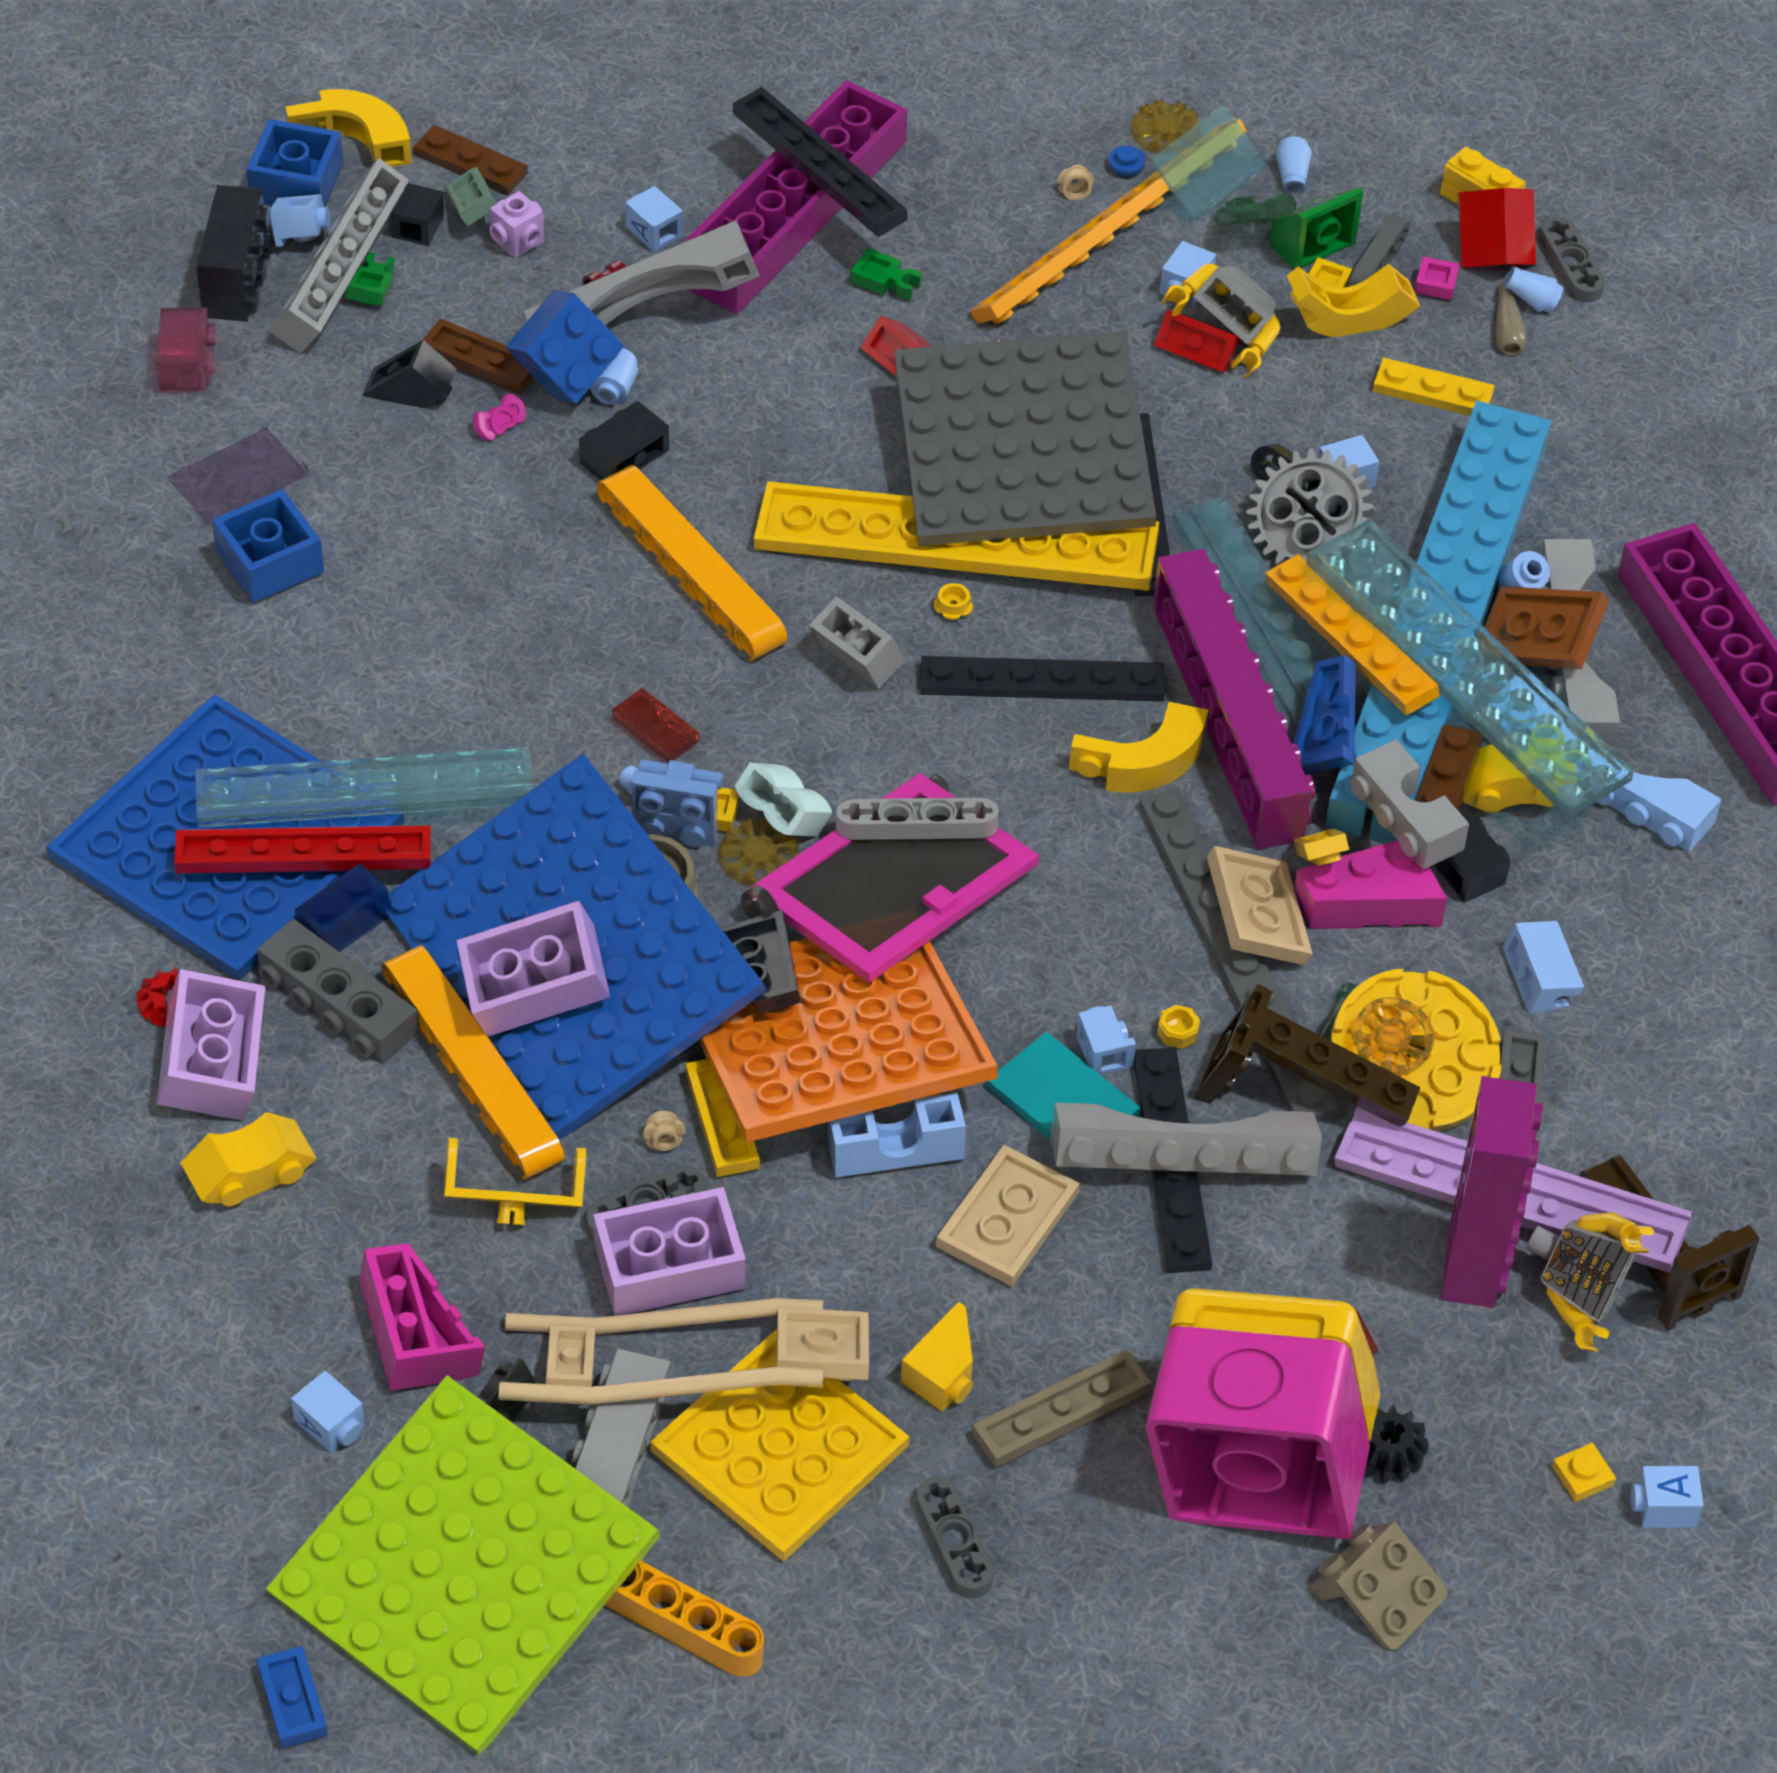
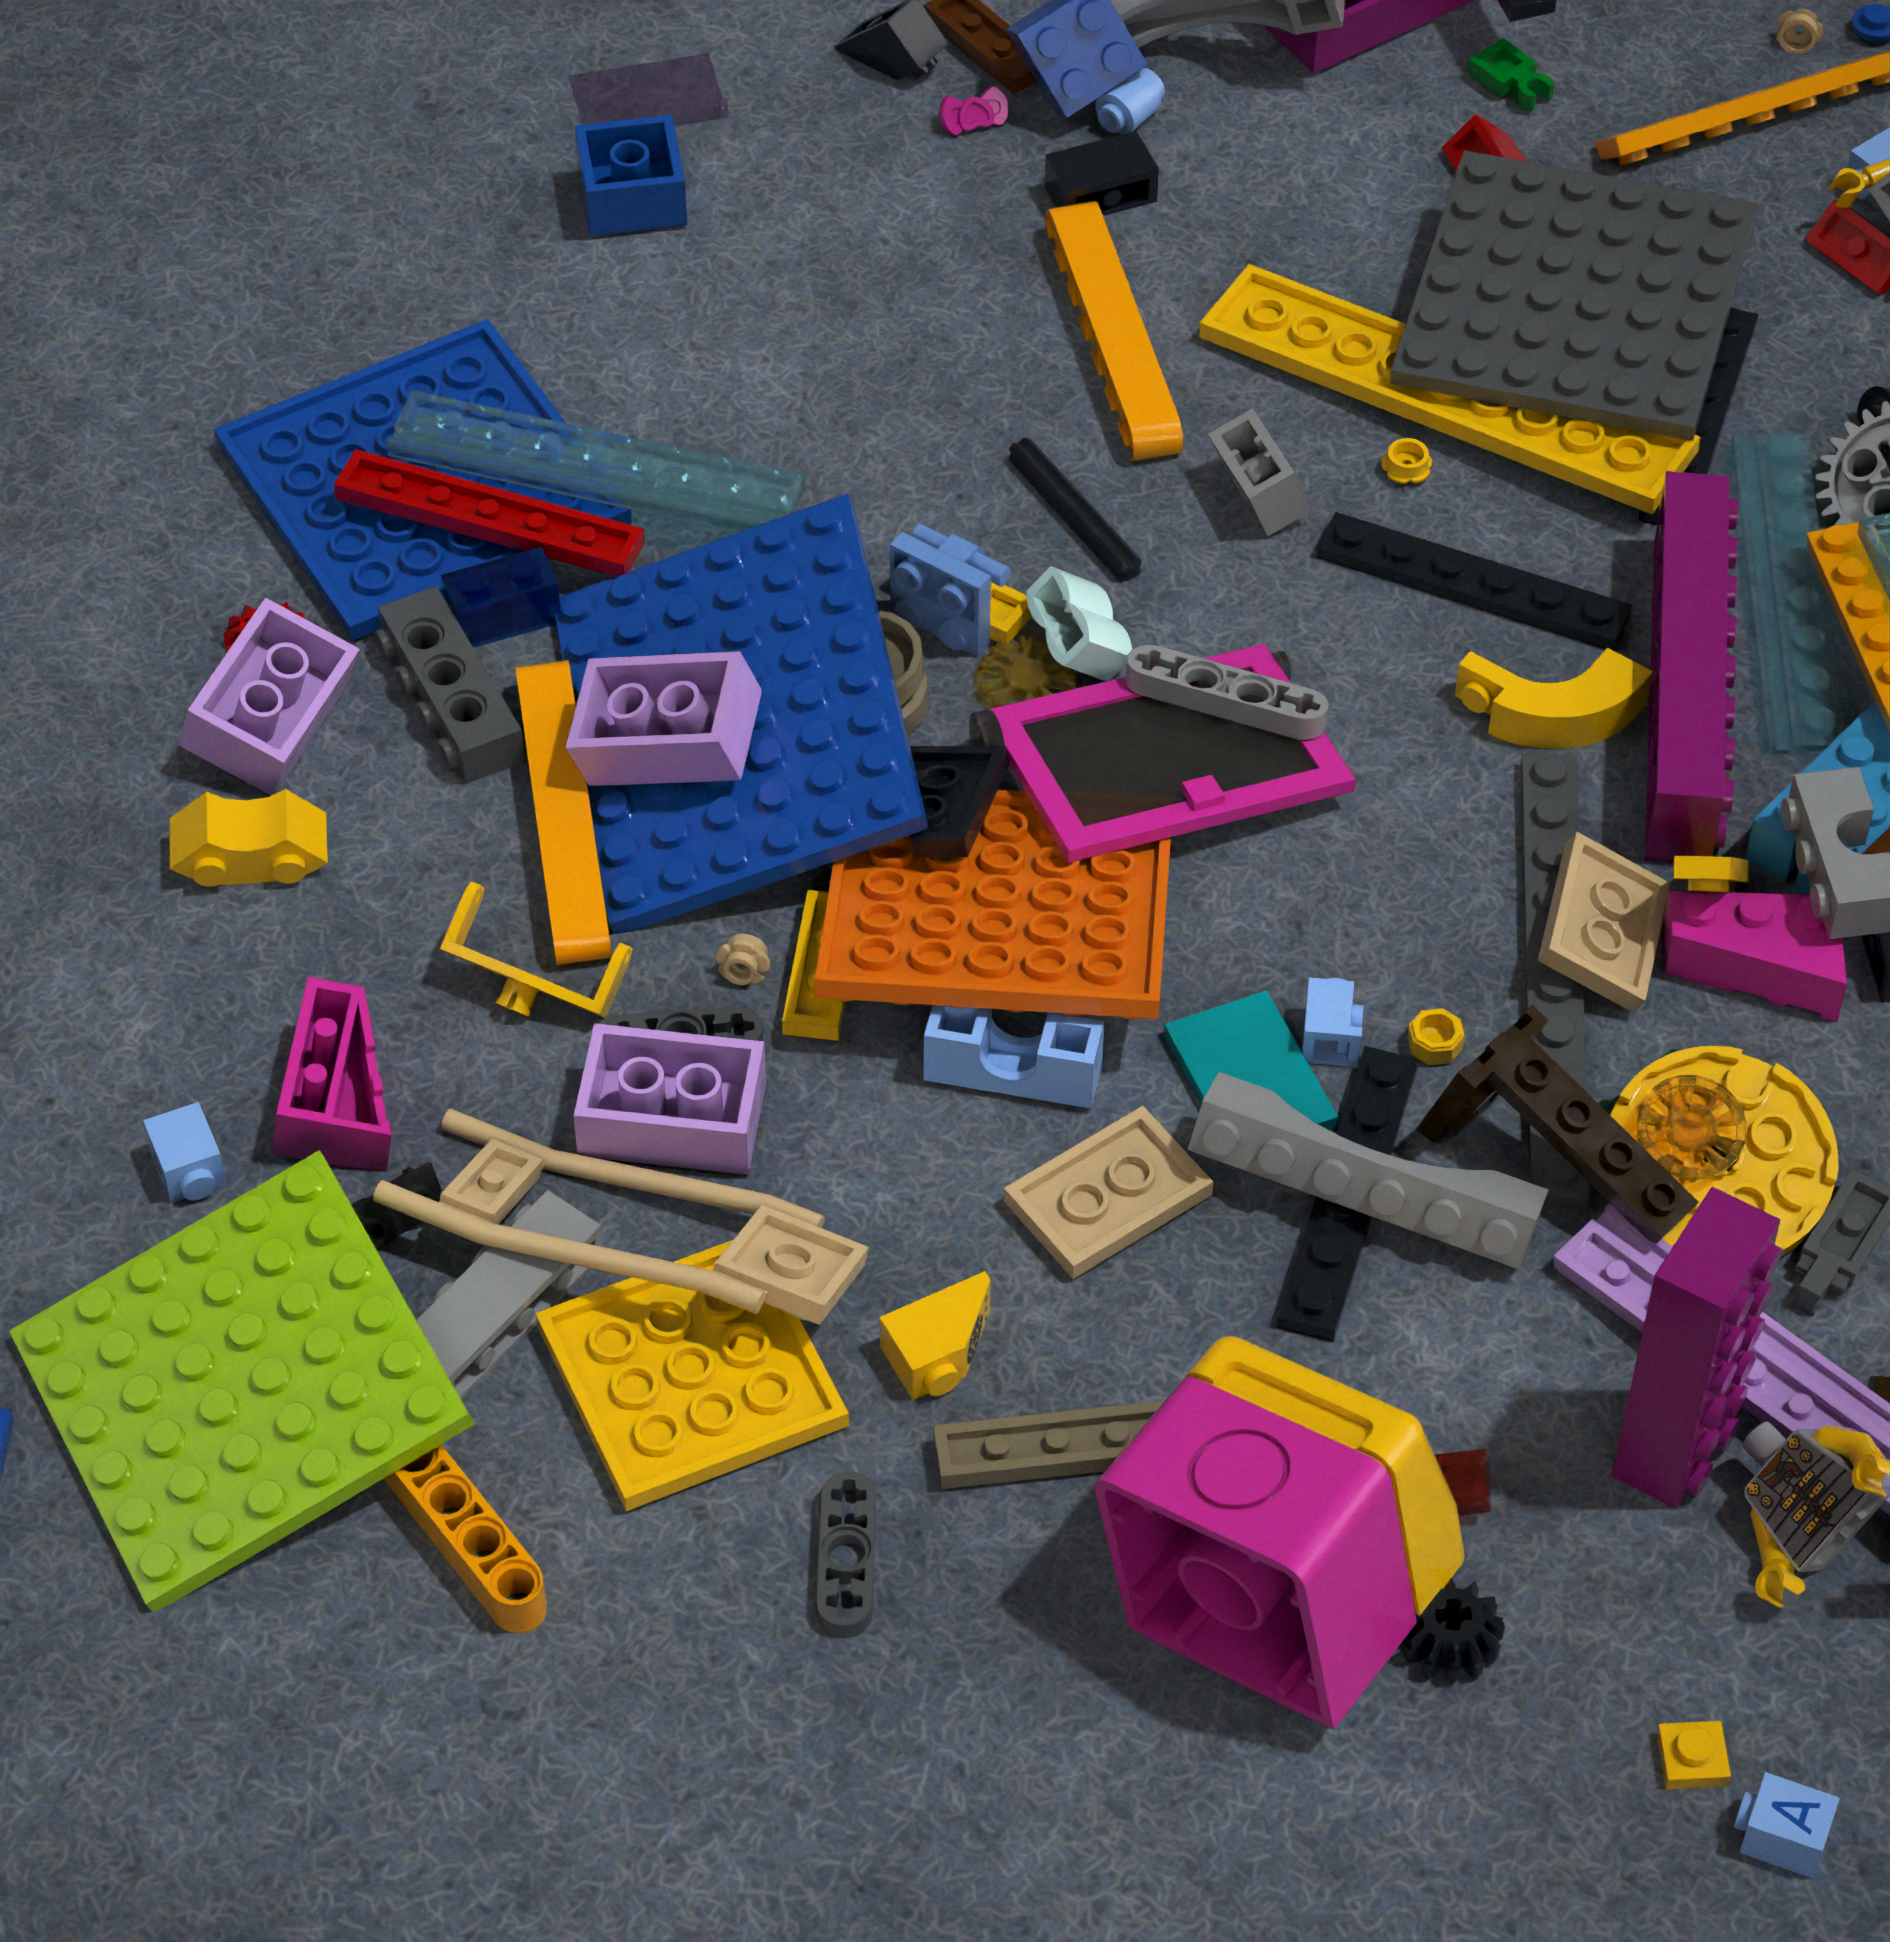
camera: 25 degrees right, 0 degrees up
(655, 725) = (977, 499): clear red plate -> none
(730, 711) = (1075, 510): none -> black axle
(1328, 717) = (1797, 725): blue wing -> none
(1382, 1582) = (1355, 1802): dark tan bracket -> none

